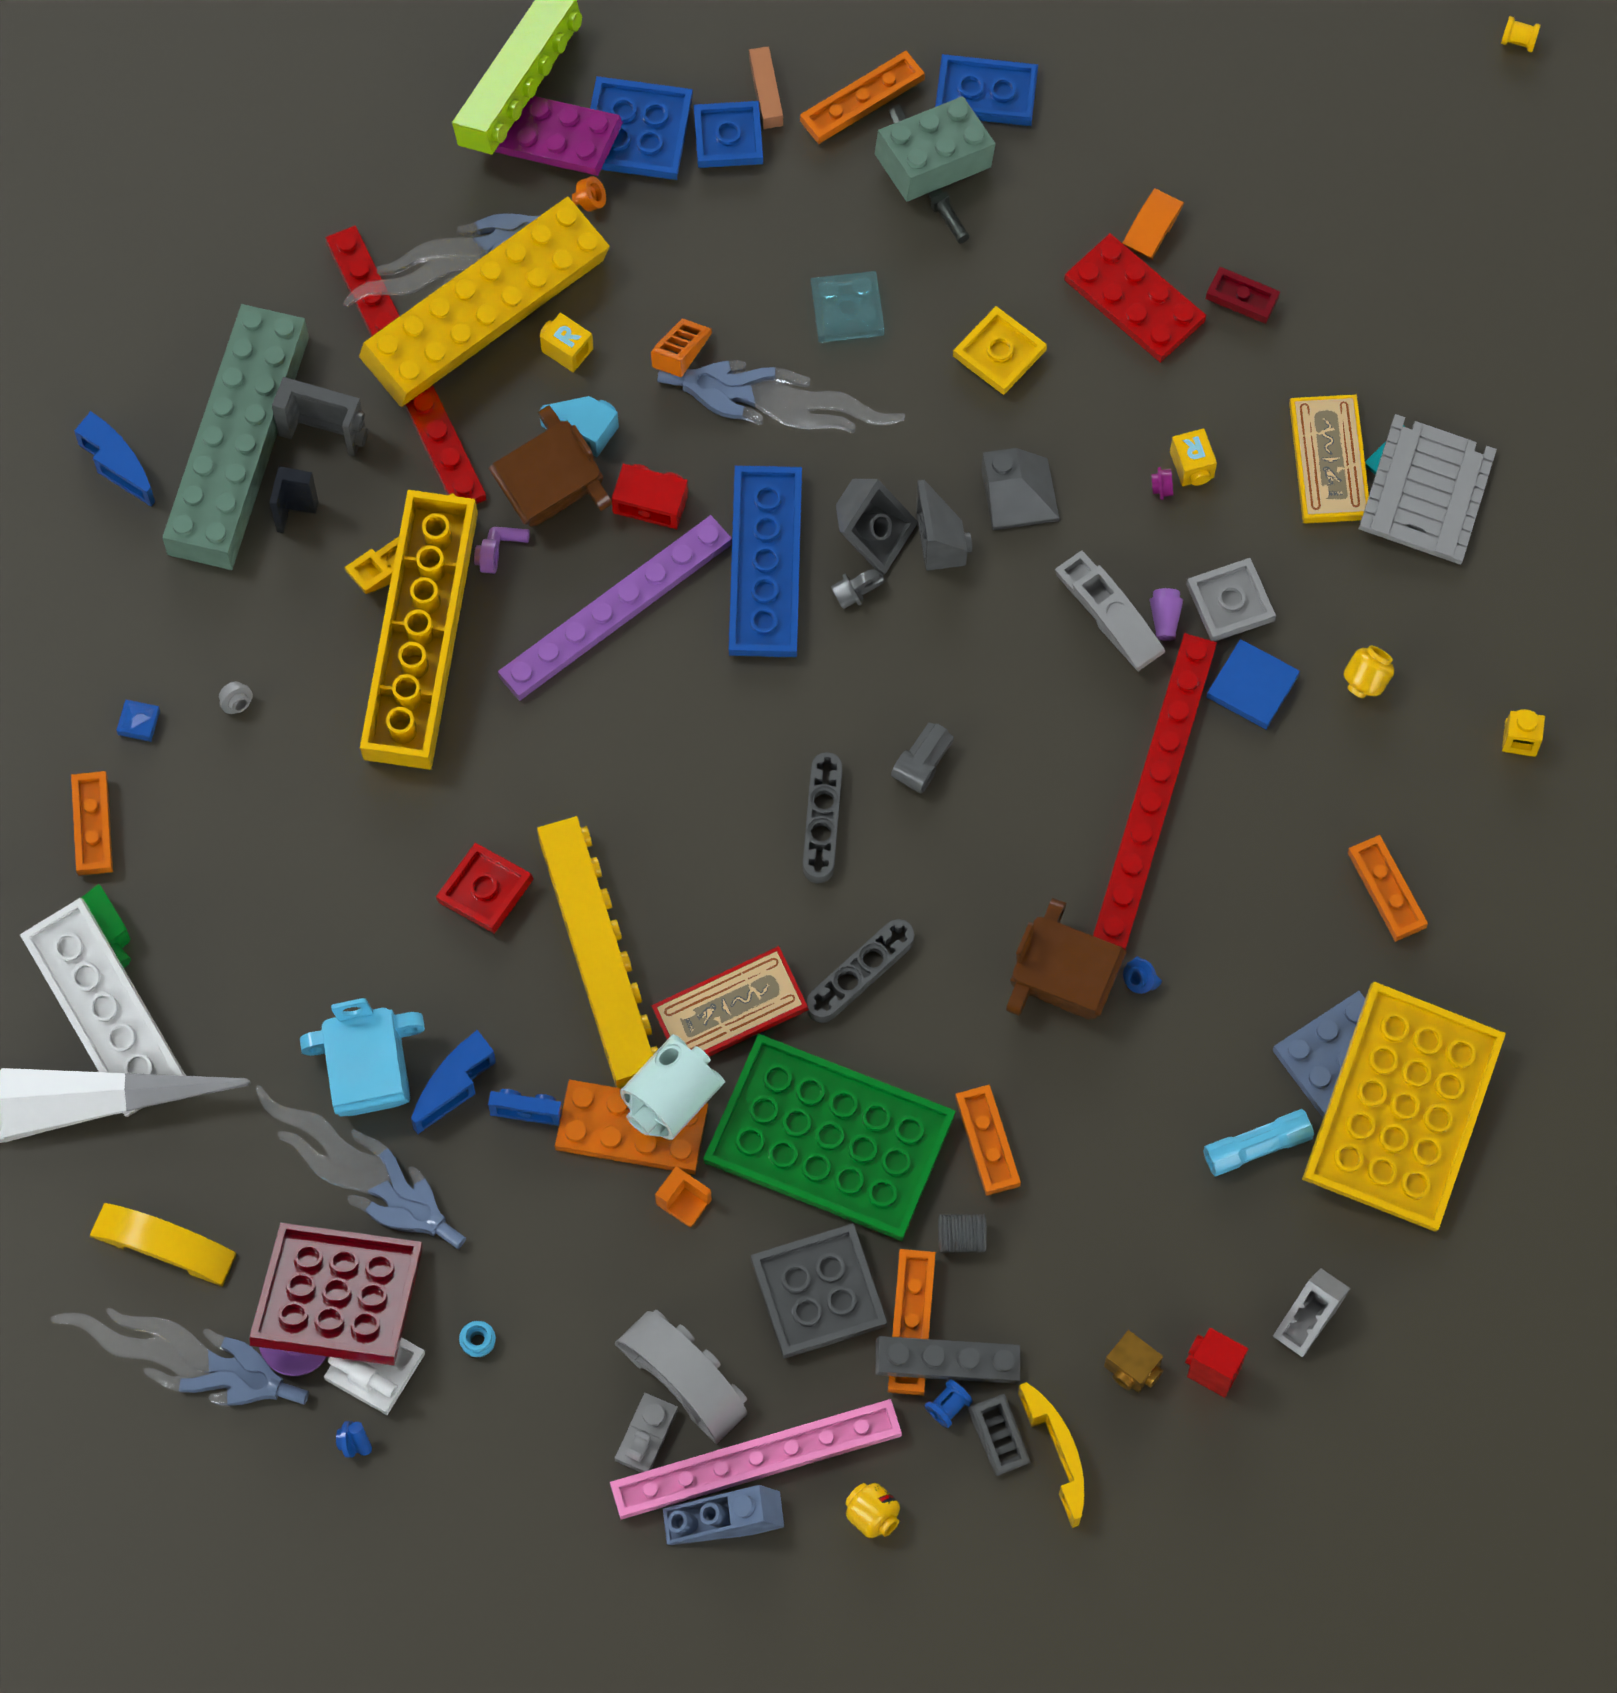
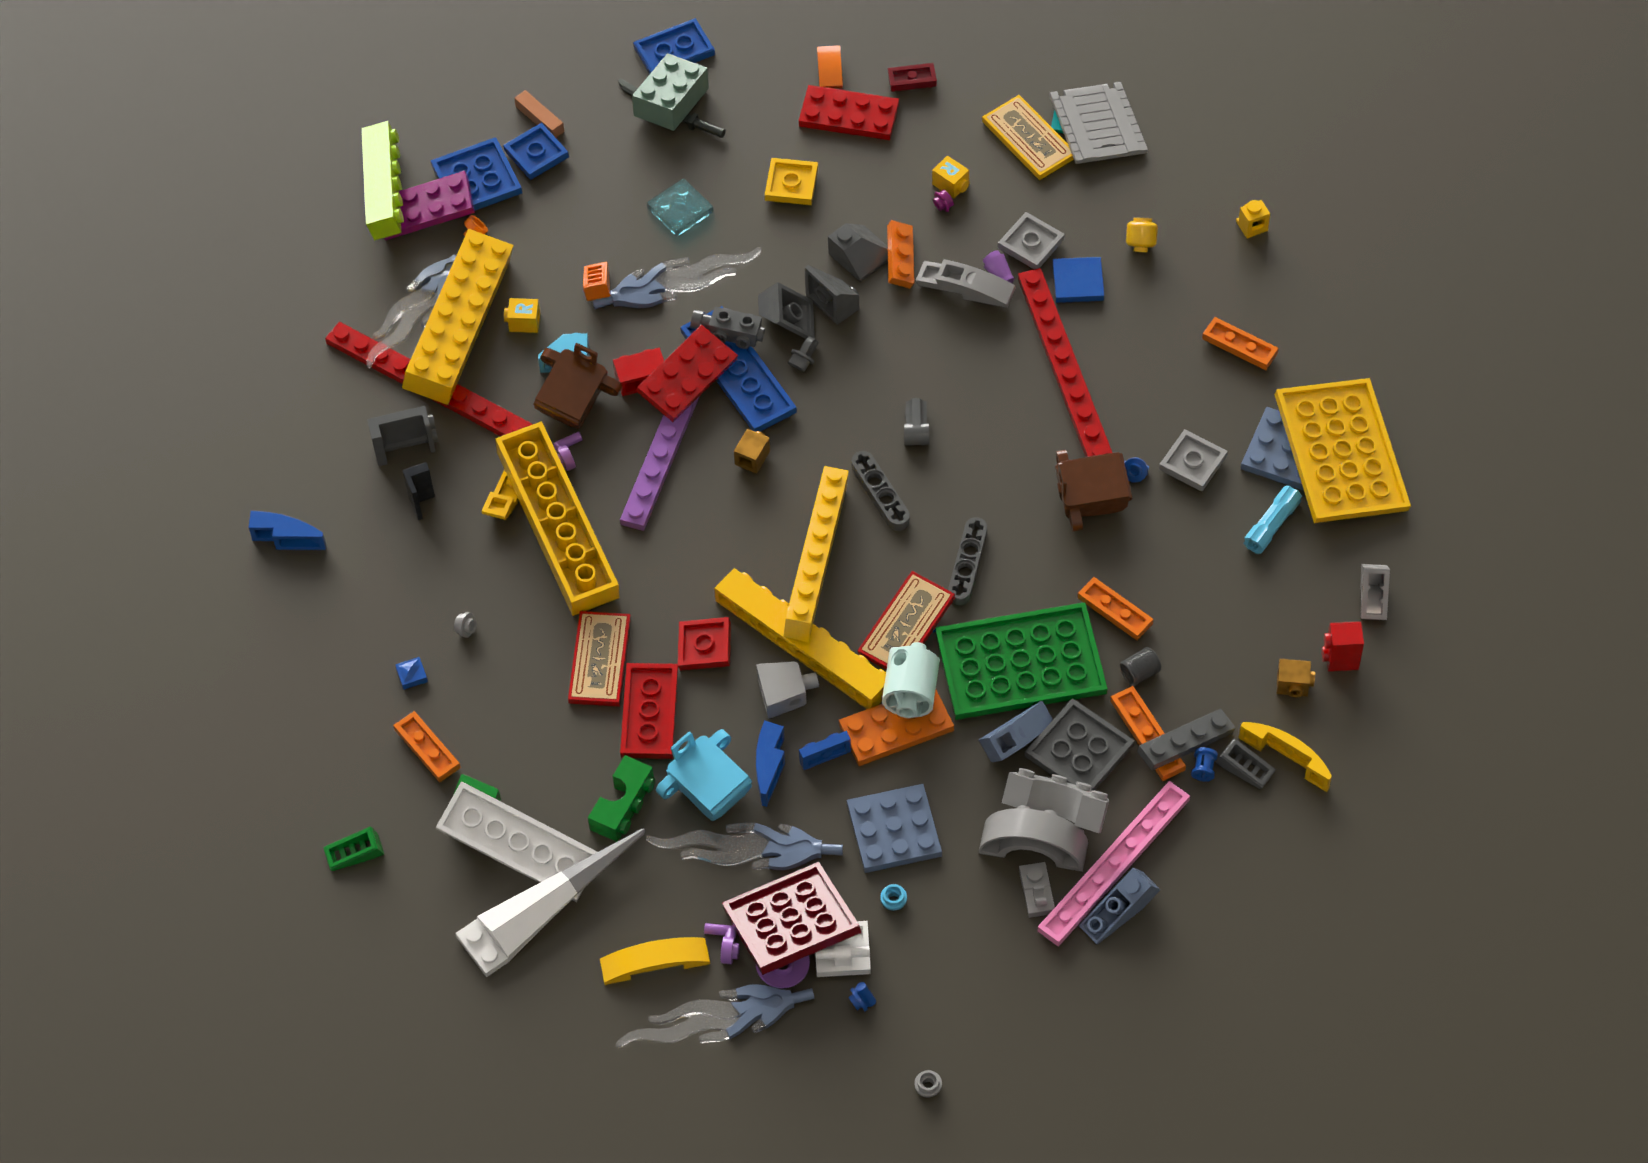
camera: 30 degrees left, 10 degrees down
(234, 438) = (354, 478): sand green brick -> none
(236, 1042) = (614, 817): none -> green arch
(249, 1283) = (729, 948): none -> medium lavender plate
(351, 1580) = (928, 1076): none -> light grey plate
(356, 832) = (599, 658): none -> tile
(365, 933) = (649, 710): none -> red plate
(534, 999) = (783, 686): none -> light grey torso
(539, 1253) = (894, 828): none -> sand blue plate
(680, 857) = (816, 554): none -> yellow brick
(683, 1197) = (959, 743): orange panel -> none
(696, 532) = (687, 373): none -> red plate
(705, 677) = (752, 450): none -> pearl gold brick
(742, 1337) = (1070, 801): none -> light grey brick
(759, 1226) = (1016, 732): none -> sand blue slope
(787, 505) = (731, 326): none -> dark grey brick
(862, 97) = (602, 89): orange plate -> none
(872, 1510) = (1206, 848): yellow head -> none
(1061, 524) = (900, 254): none -> orange plate
(1218, 1006) = (1193, 460): none -> light grey plate

